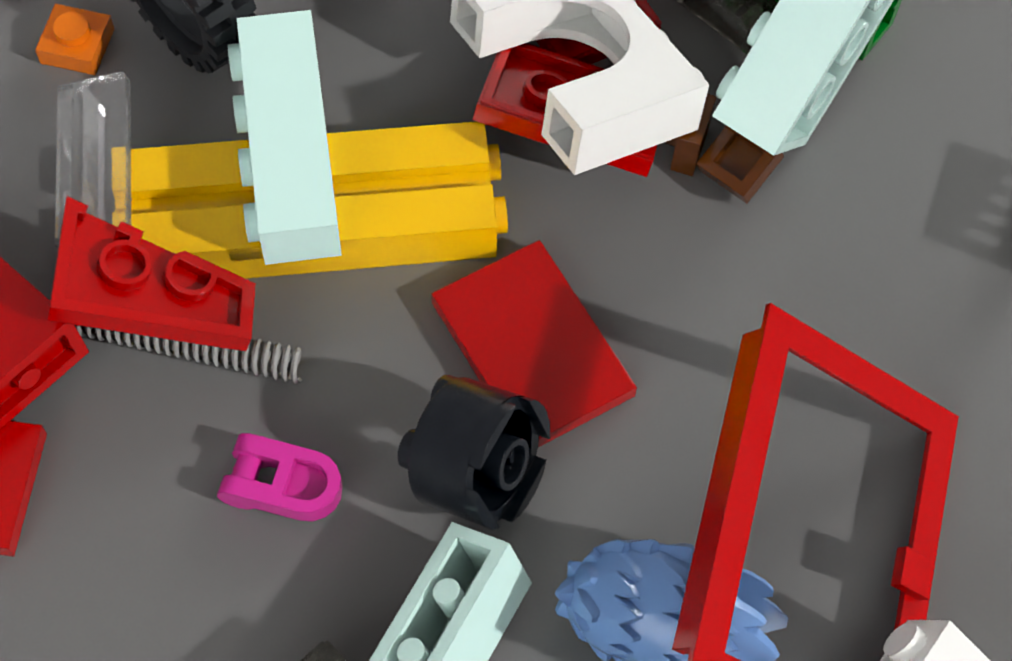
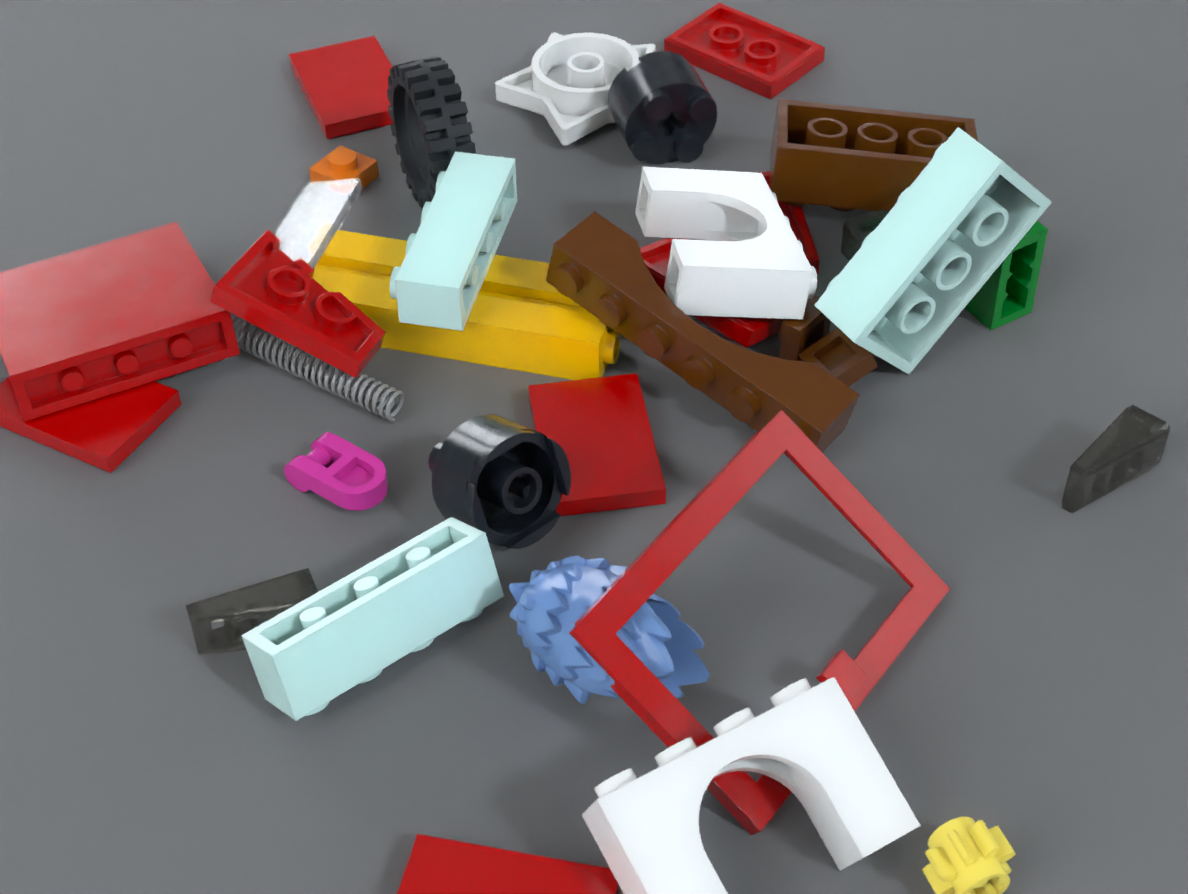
camera: 25 degrees right, 20 degrees down
(484, 145) = (607, 277): none -> reddish brown arch

